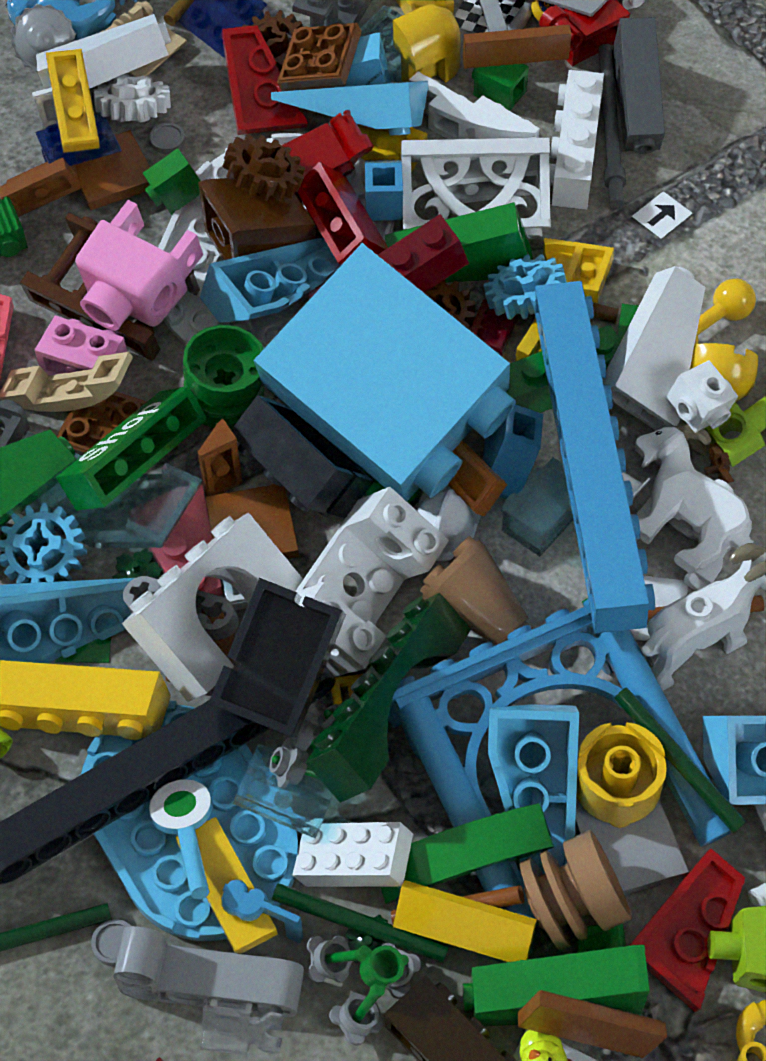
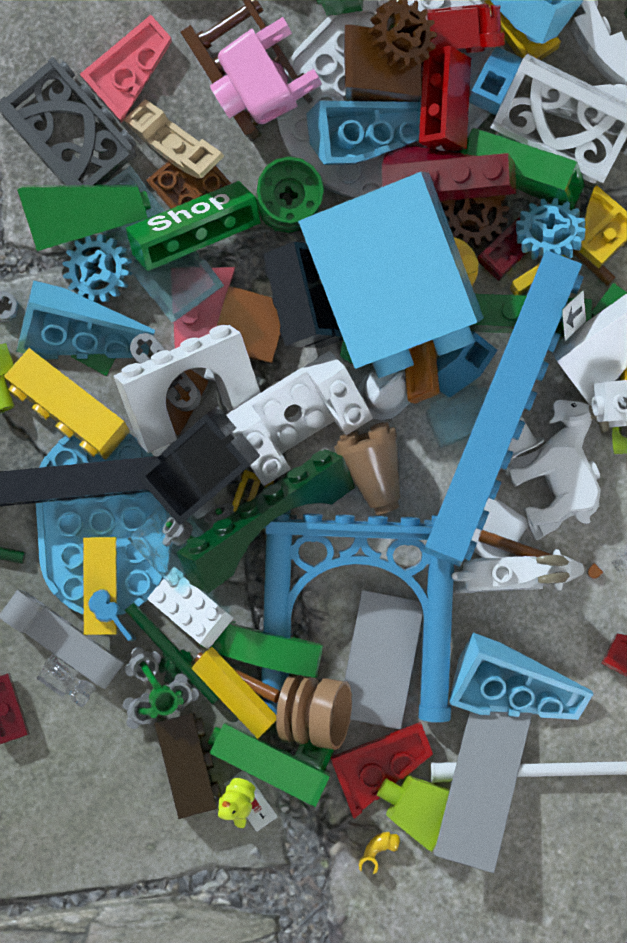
camera: 30 degrees right, 25 degrees up
(75, 346) = (199, 113): bright pink brick -> none
(107, 940) = (17, 577): light grey piece -> none
(140, 566) = (154, 317): dark green plant -> none
(180, 810) = (95, 520): piece -> none
(220, 461) = (249, 266): dark orange slope -> none
(537, 762) = (338, 613): medium azure wedge -> none
(591, 1024) = (276, 798): dark orange tile -> none
(604, 333) = (573, 315): none -> white sticker
(620, 773) = (406, 657): yellow brick -> none
(682, 762) = (432, 661): dark green bar -> none
(719, 463) = (604, 449): reddish brown plant -> none

